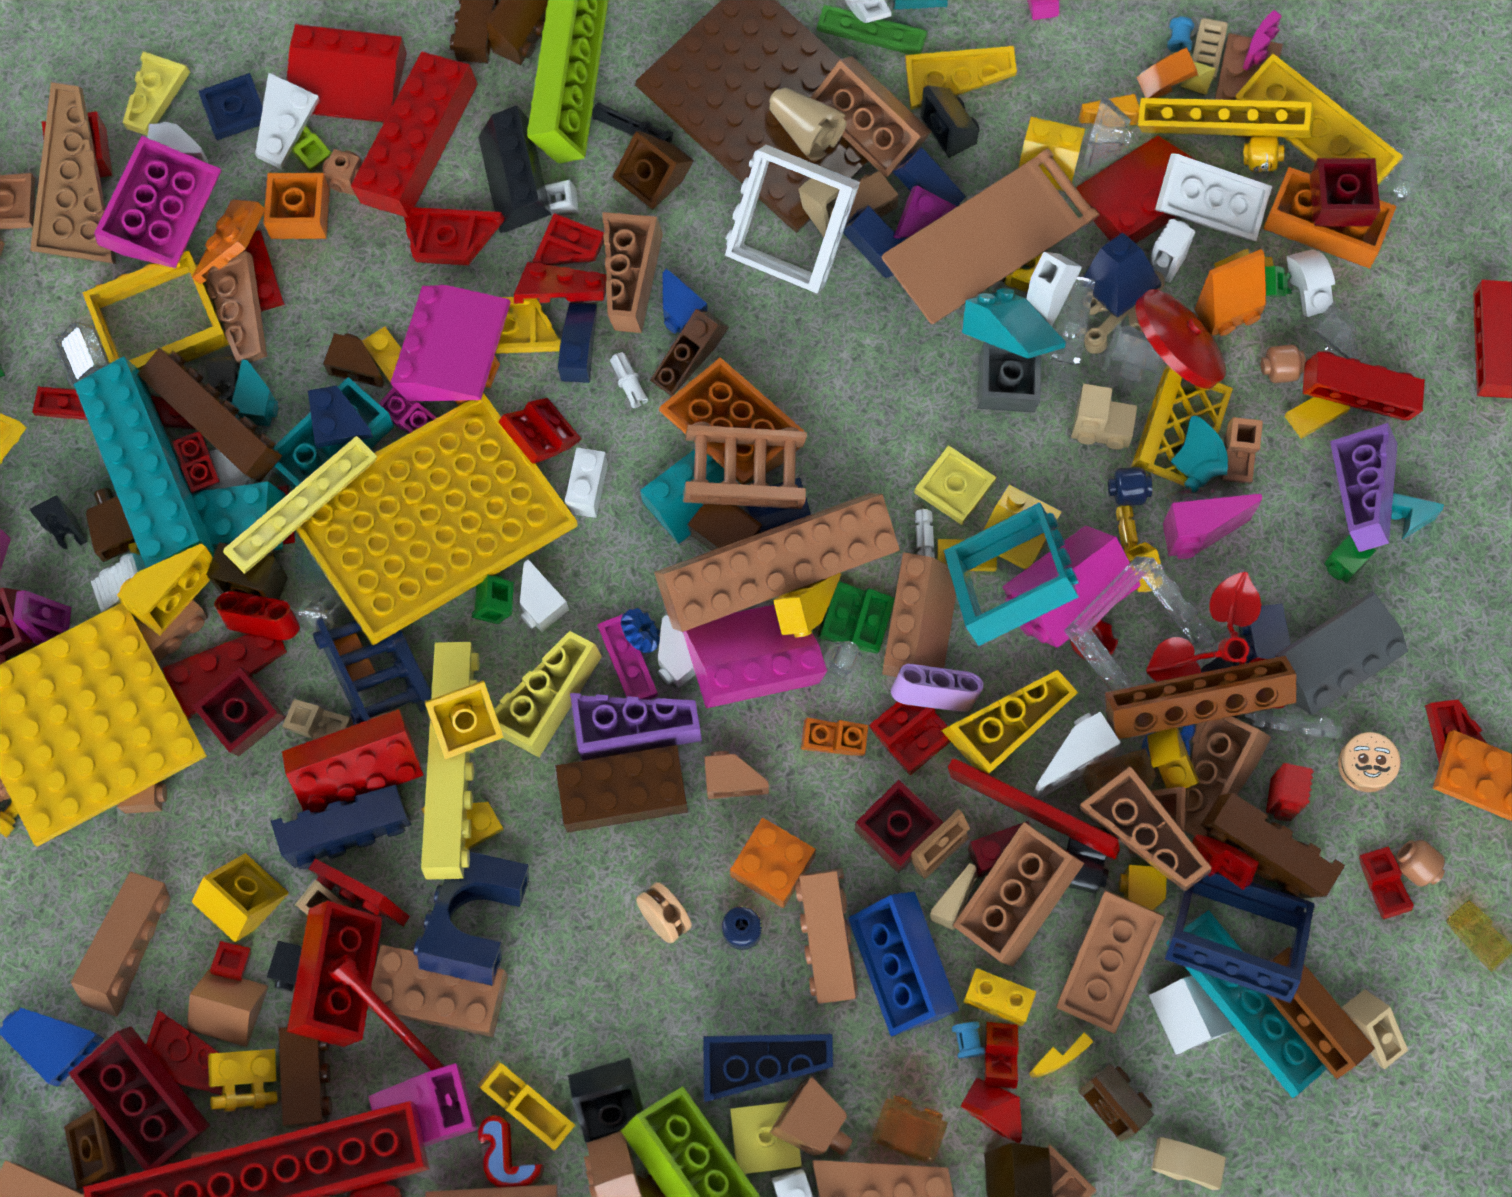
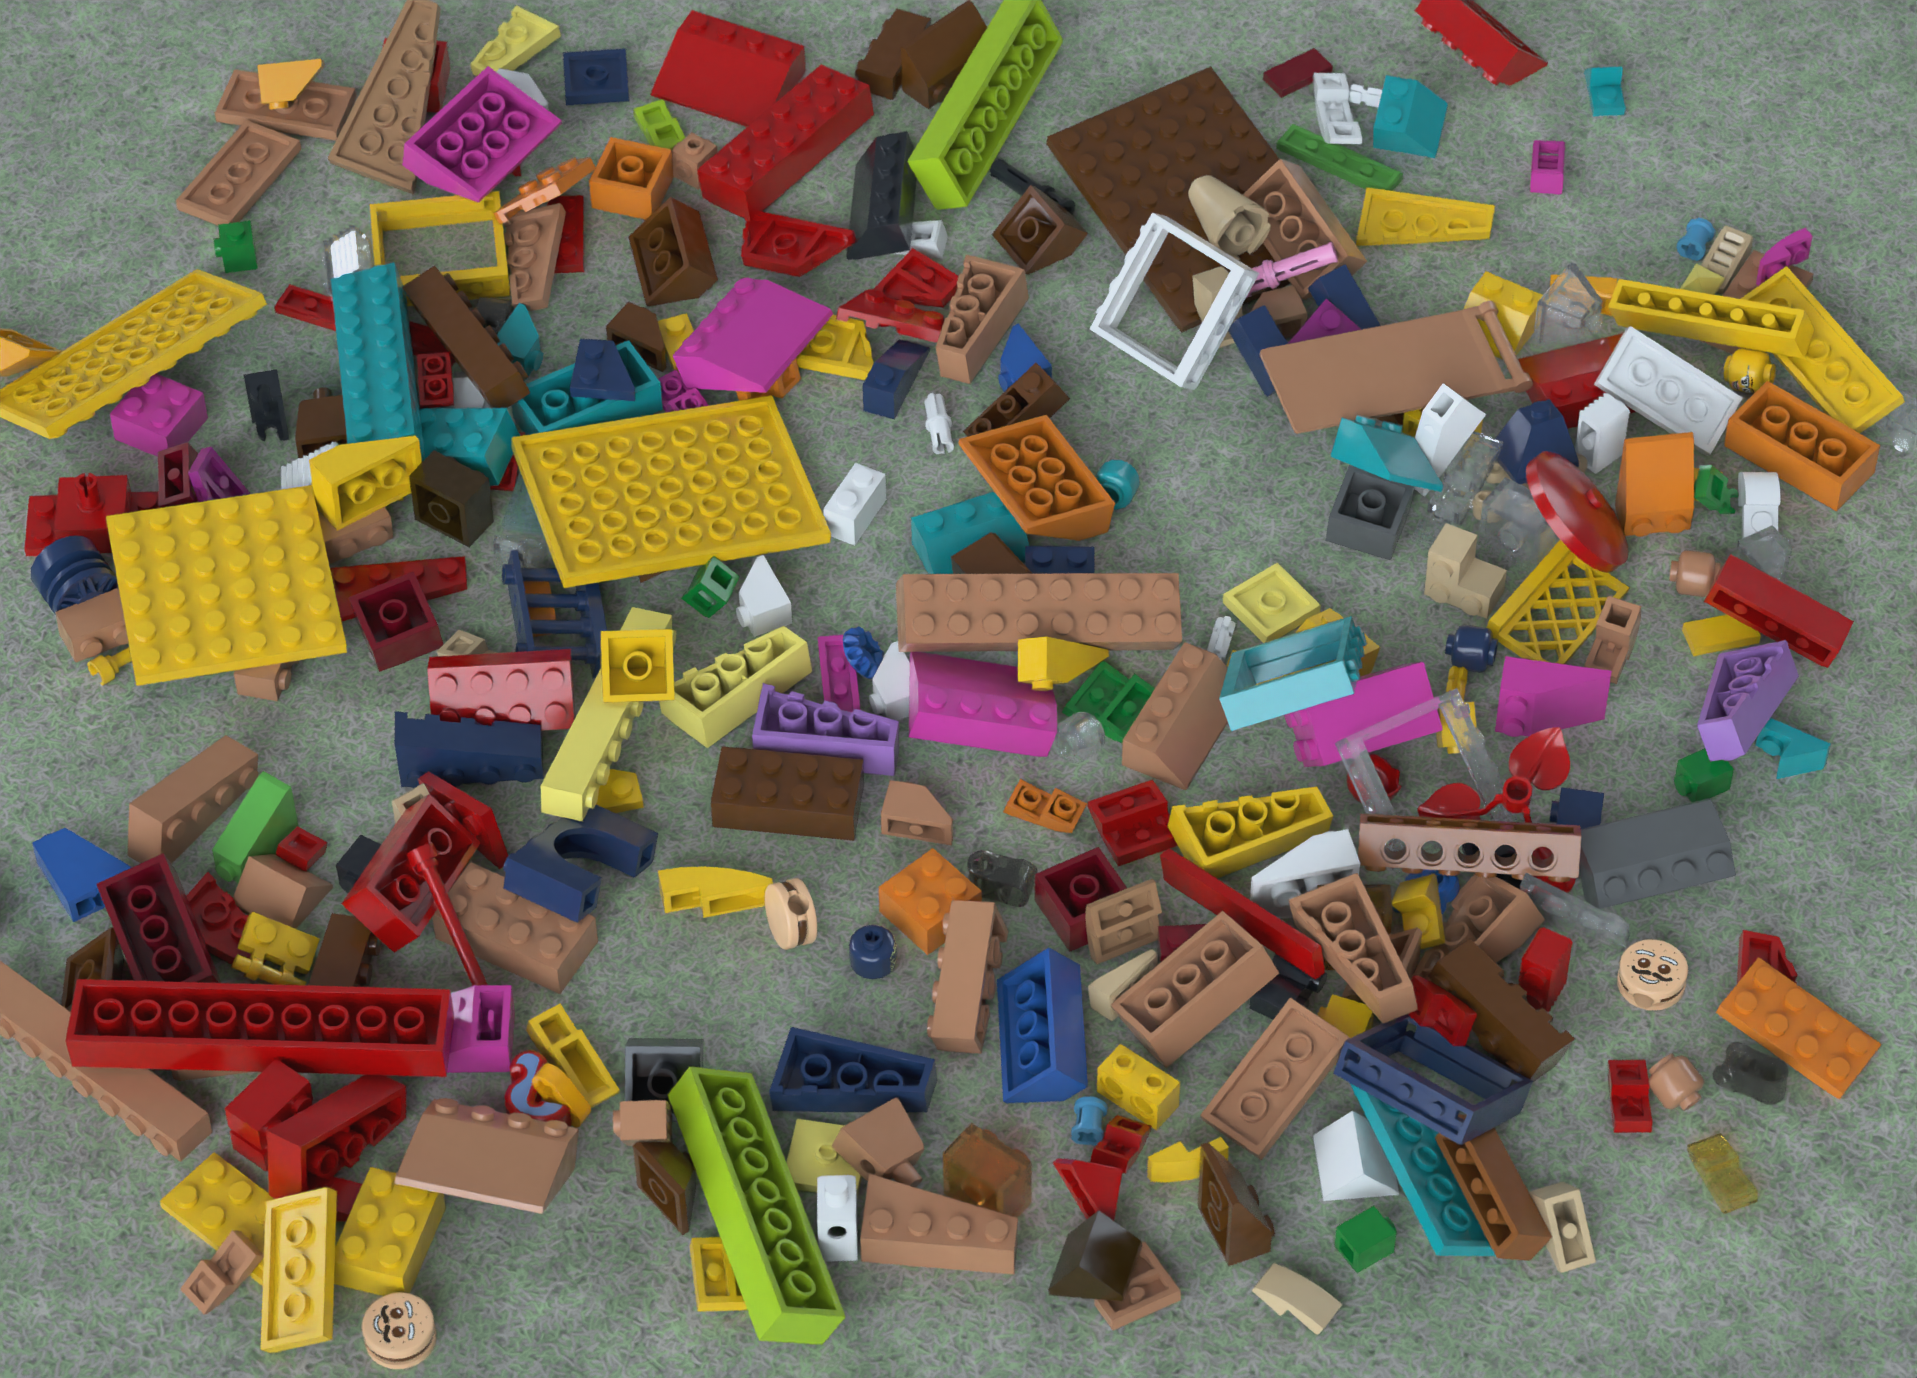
camera: 15 degrees right, 20 degrees down
(186, 960) = (256, 827): none -> bright green slope
(238, 896) = (331, 792): yellow slope -> none
(257, 615) = (448, 538): red beam -> none
(282, 119) = (646, 97): white wing -> none
(299, 505) = (534, 435): light yellow plate -> none
(355, 271) = (672, 255): none -> reddish brown slope
(530, 1152) = (557, 1088): none -> light orange beam
(539, 430) = (820, 445): red slope -> none
(590, 901) = (712, 889): none -> yellow slope
(730, 491) = (1026, 538): nougat fence -> none
(794, 401) = (1119, 481): none -> teal head
(827, 821) = (1004, 878): none -> clear smoke piece
(860, 166) = (1272, 273): none -> bright pink pin
(936, 688) = (1173, 776): lavender beam -> none
(948, 120) = (1392, 258): black slope -> none
(1166, 73) = (1667, 267): orange slope -> none
(1201, 455) = (1565, 635): teal arm -> none
(1226, 1089) = (1366, 1238): none -> green brick
(1344, 192) = (1816, 410): dark red brick -> none
(1470, 835) = (1752, 1074): none -> clear smoke piece

